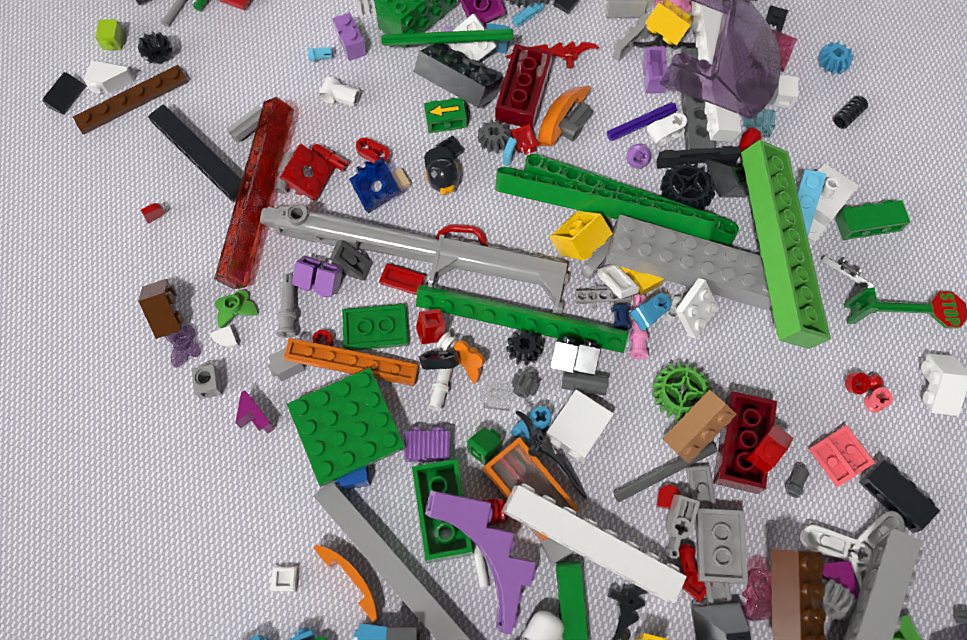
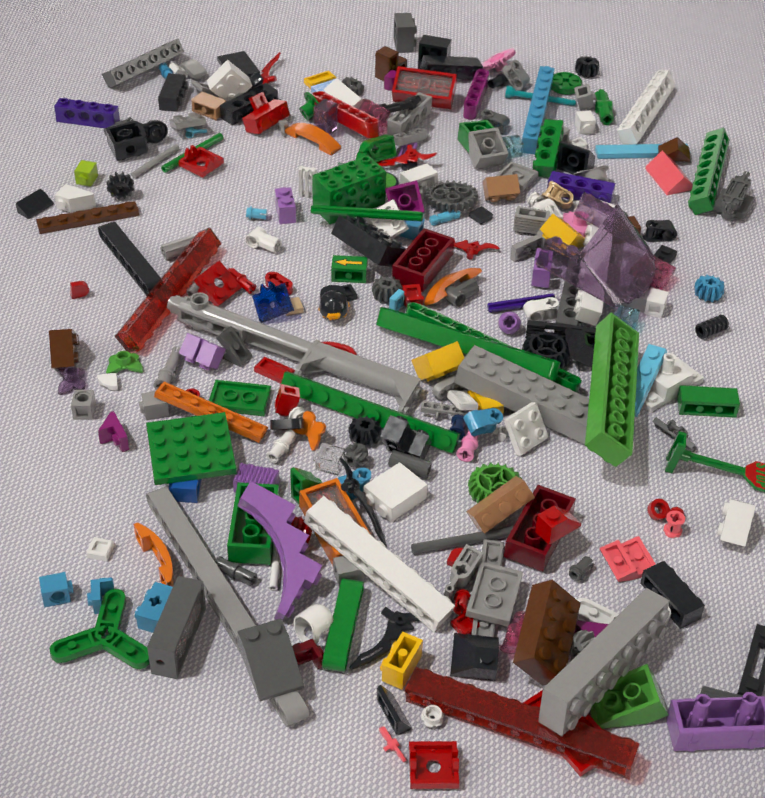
camera: 10 degrees right, 25 degrees down
(438, 575) = (236, 571): none -> dark grey pin

